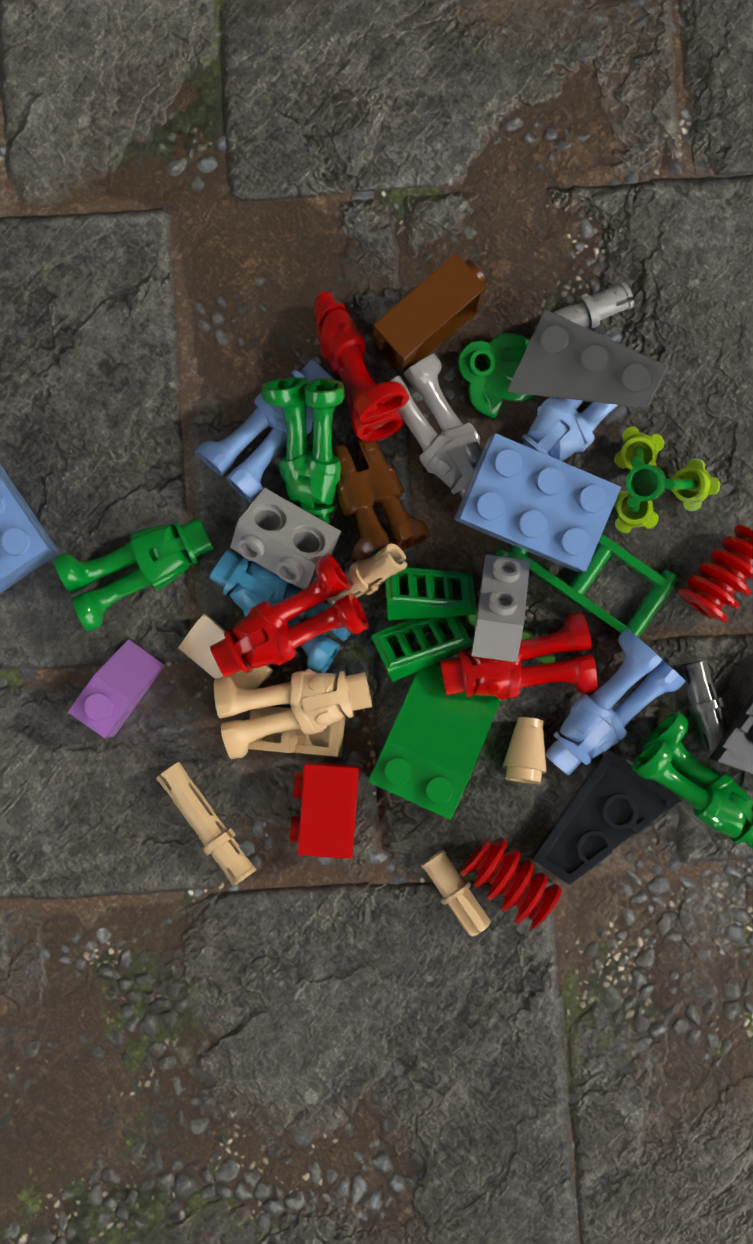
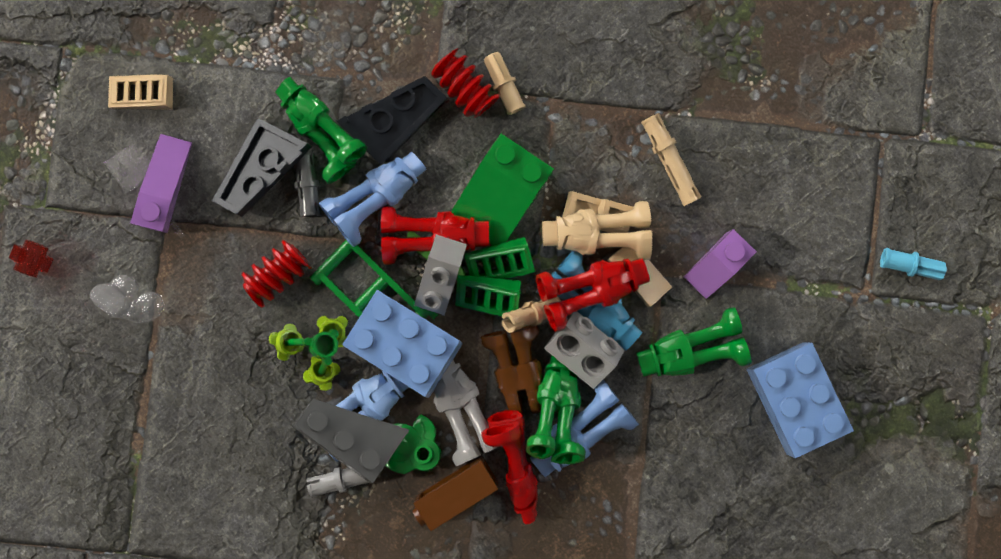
camera: 175 degrees left, 0 degrees up
(326, 809) = (585, 155): red brick -> none
(526, 752) = (439, 171): tan cone -> none

